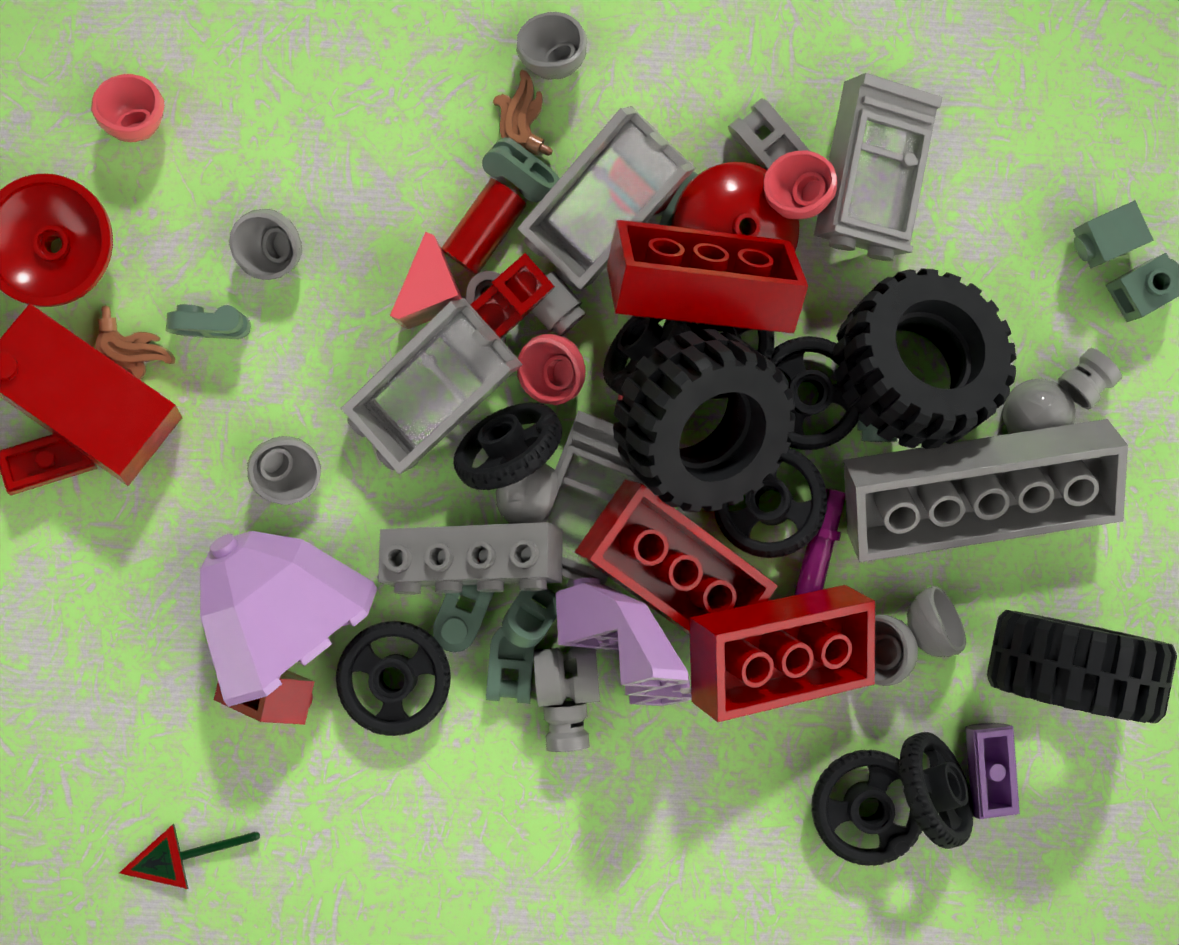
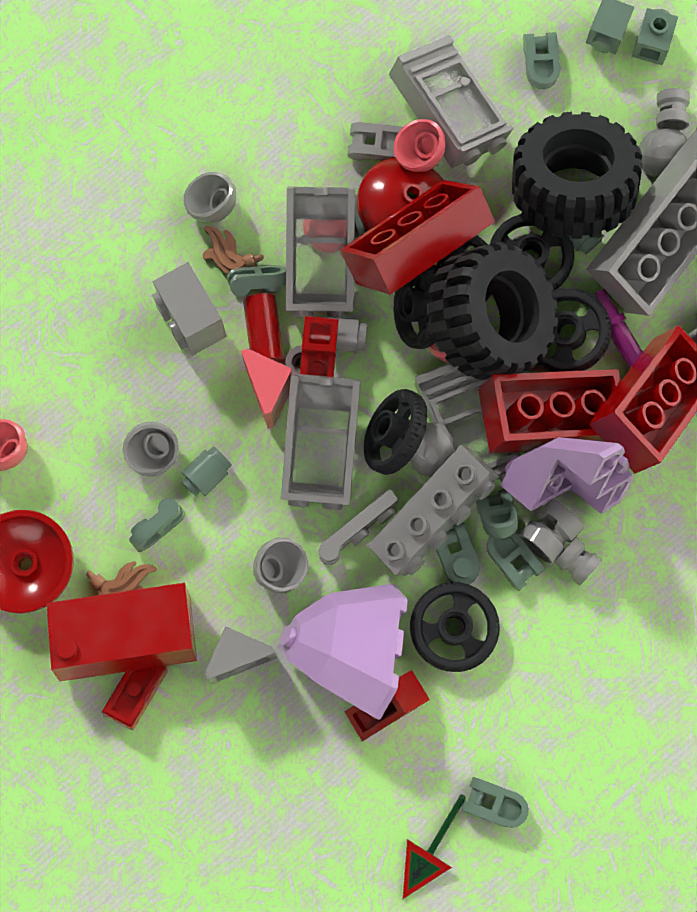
camera: 40 degrees left, 10 degrees down
(164, 516) = (236, 654): none -> light grey slope
(286, 886) = (507, 809): none -> sand green plate
(299, 314) = (206, 472): none -> sand green brick
(388, 502) = (357, 528): none -> light grey plate
(423, 139) = (187, 304): none -> light grey brick
(551, 369) = (379, 369): coral piece -> none
(1002, 215) = (541, 69): none -> sand green plate

